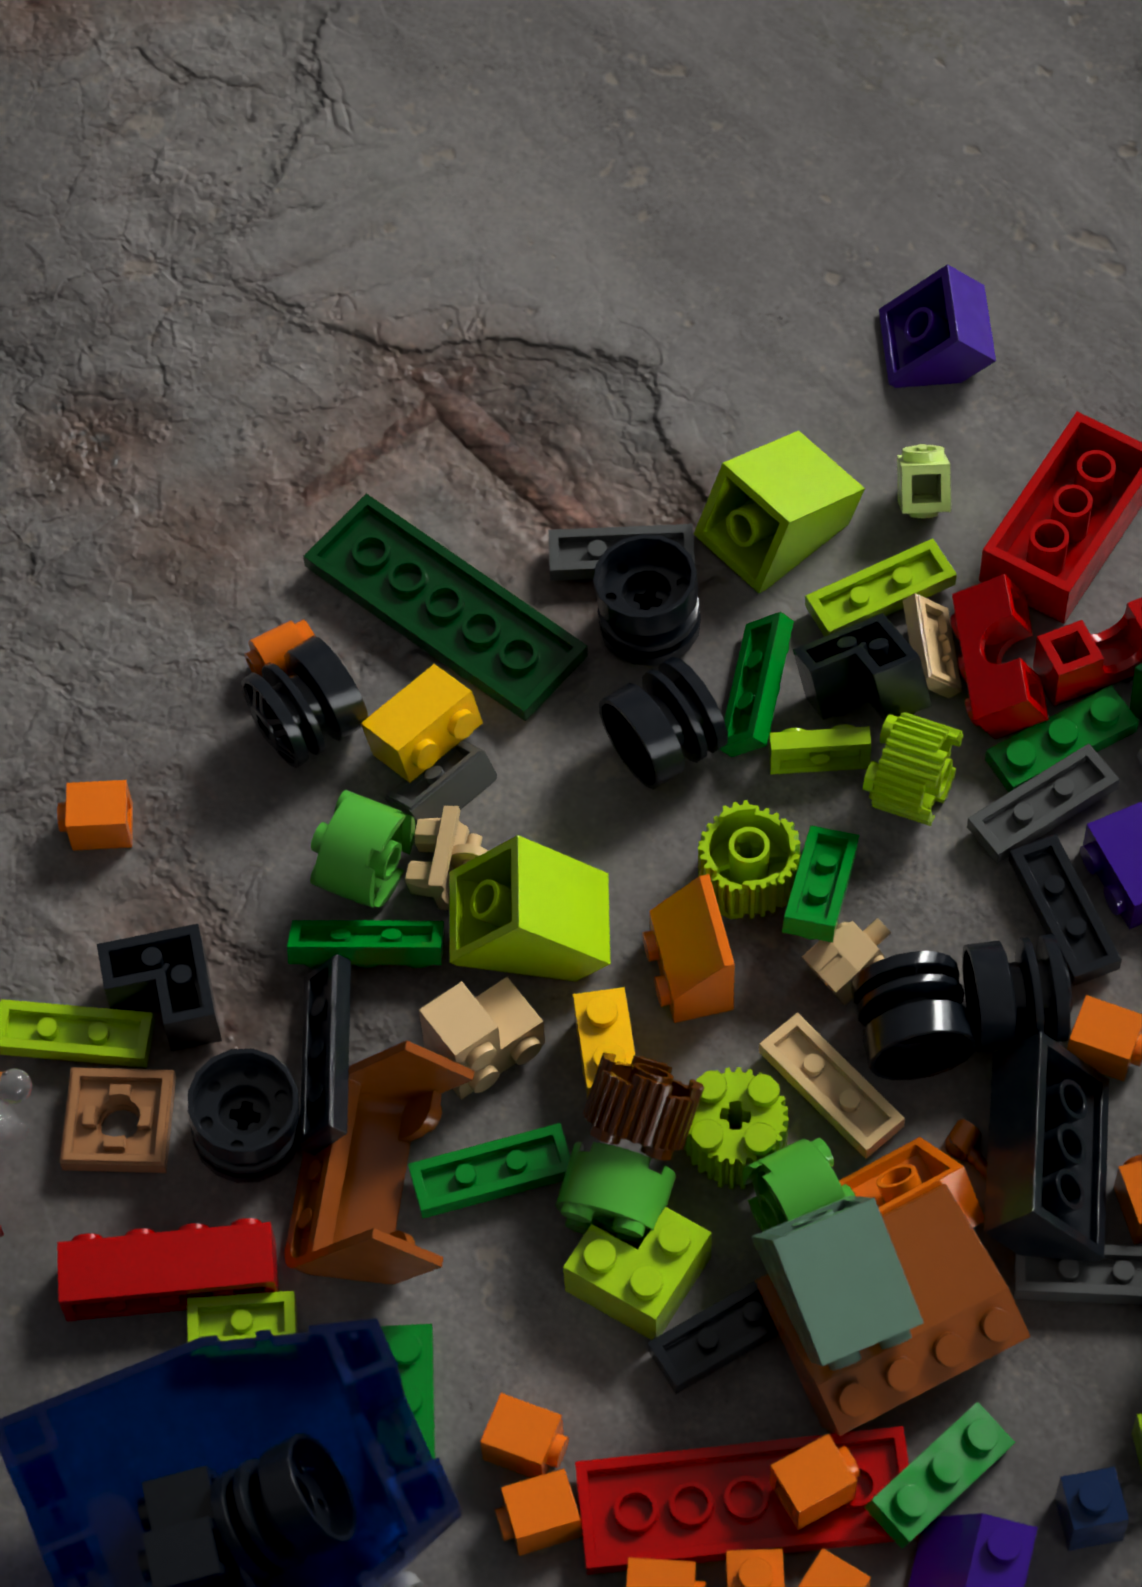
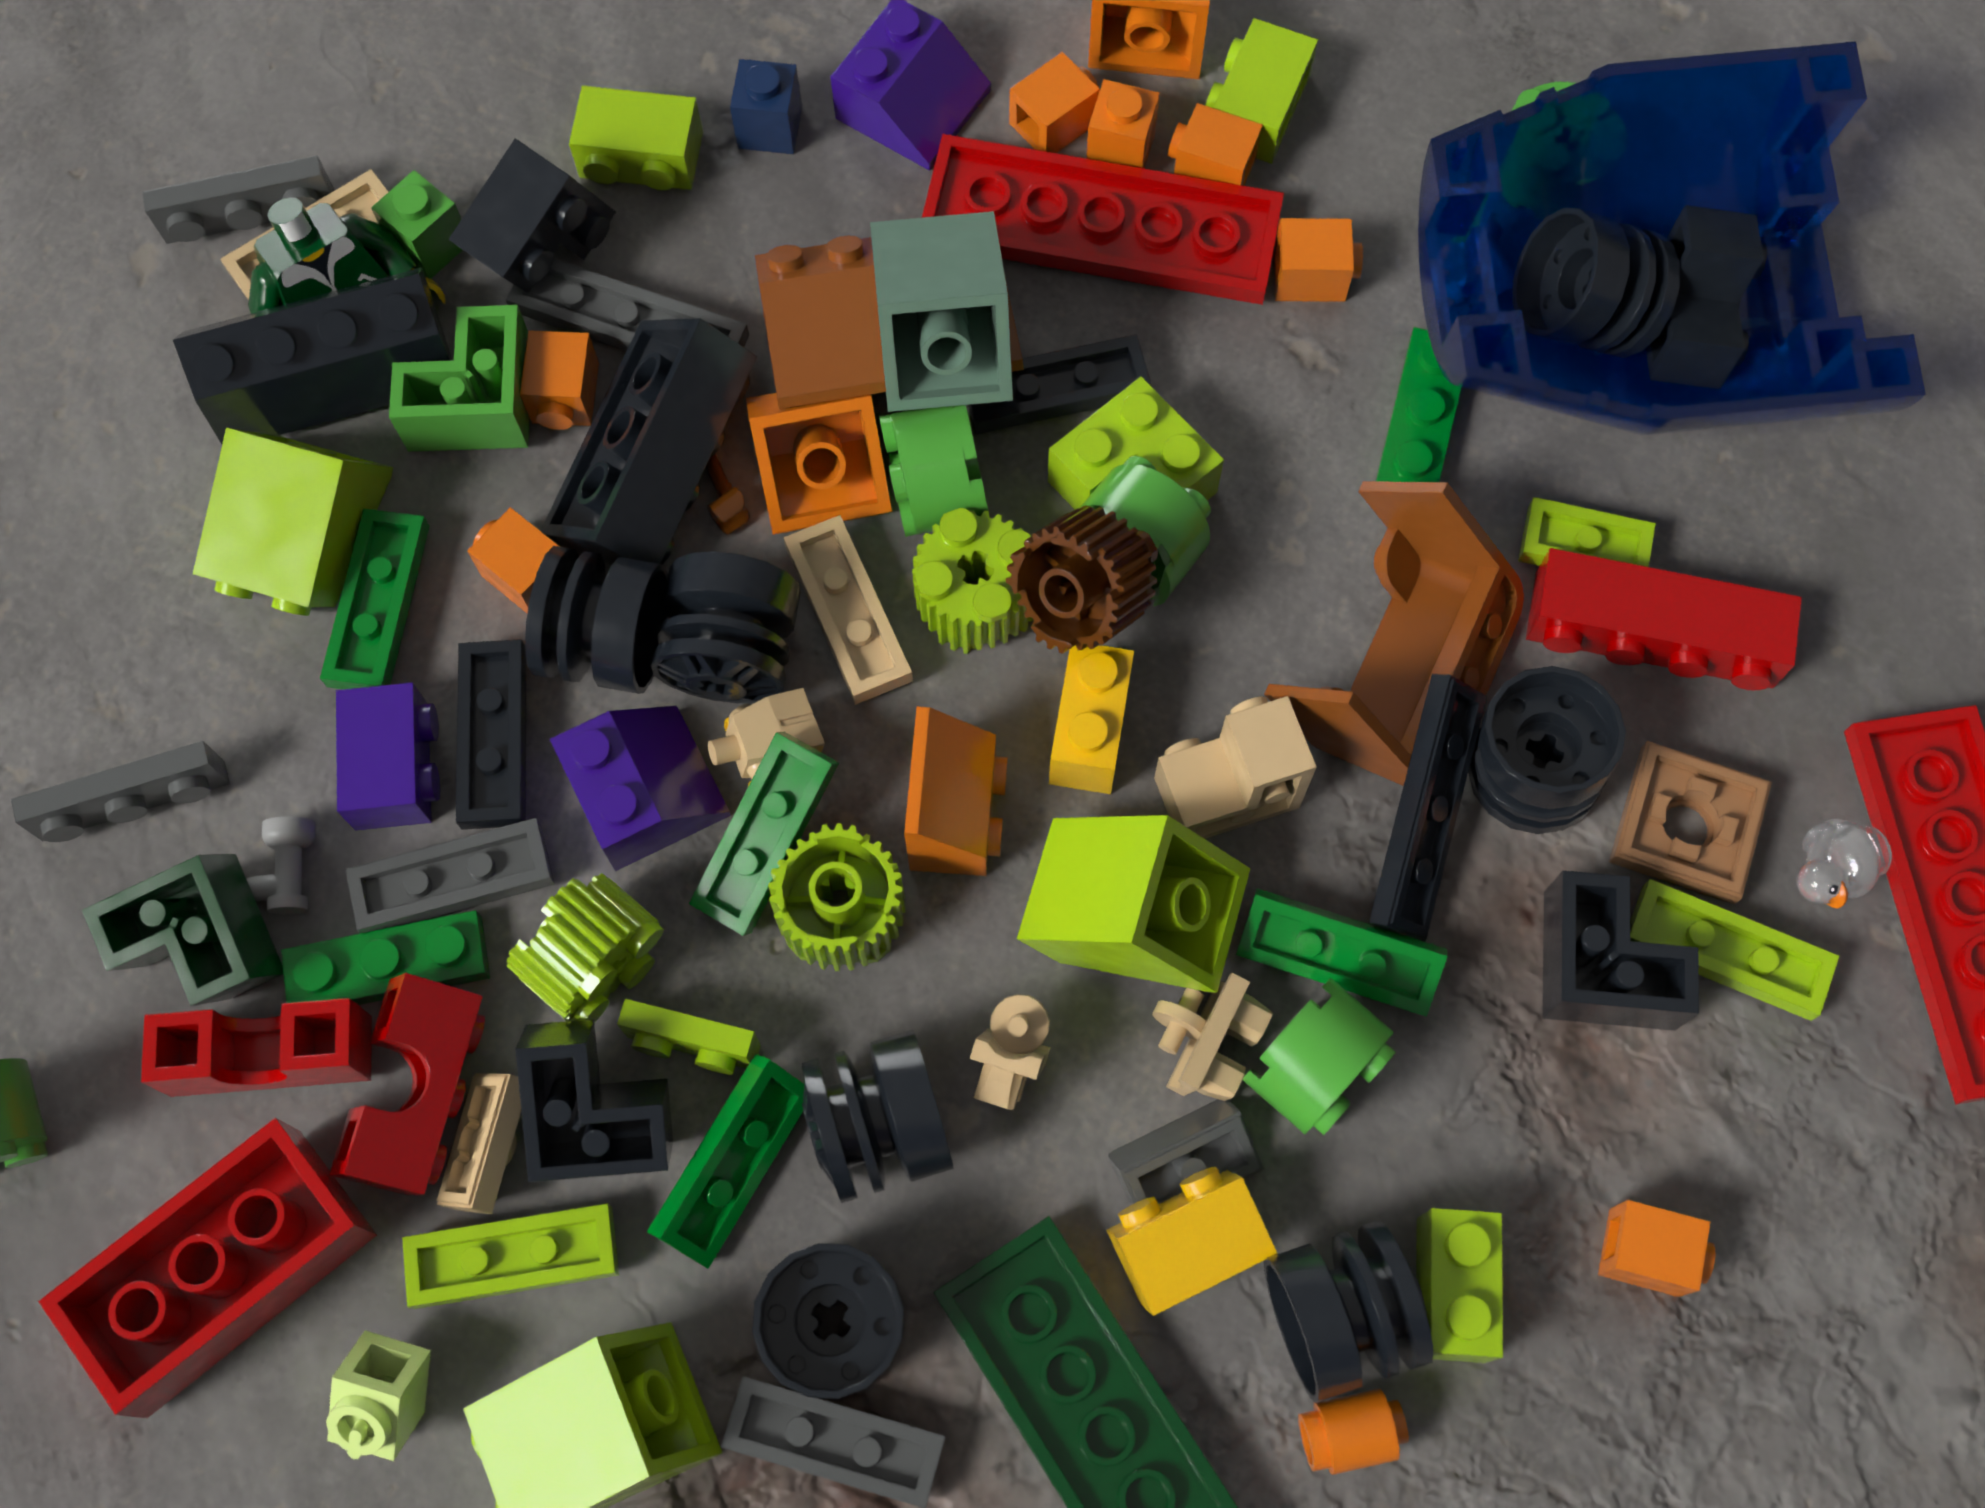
camera: 165 degrees left, 10 degrees up
(231, 750) = (1462, 1282): none -> lime brick
(490, 1170) = (1265, 627): green plate -> none
(524, 1437) = (1310, 333): orange brick -> none
(584, 788) = (1011, 1050): none -> tan hips
(814, 1480) = (1031, 181): orange brick -> none
(936, 899) = (639, 781): none -> dark purple slope
(939, 1475) = (902, 173): green plate -> none

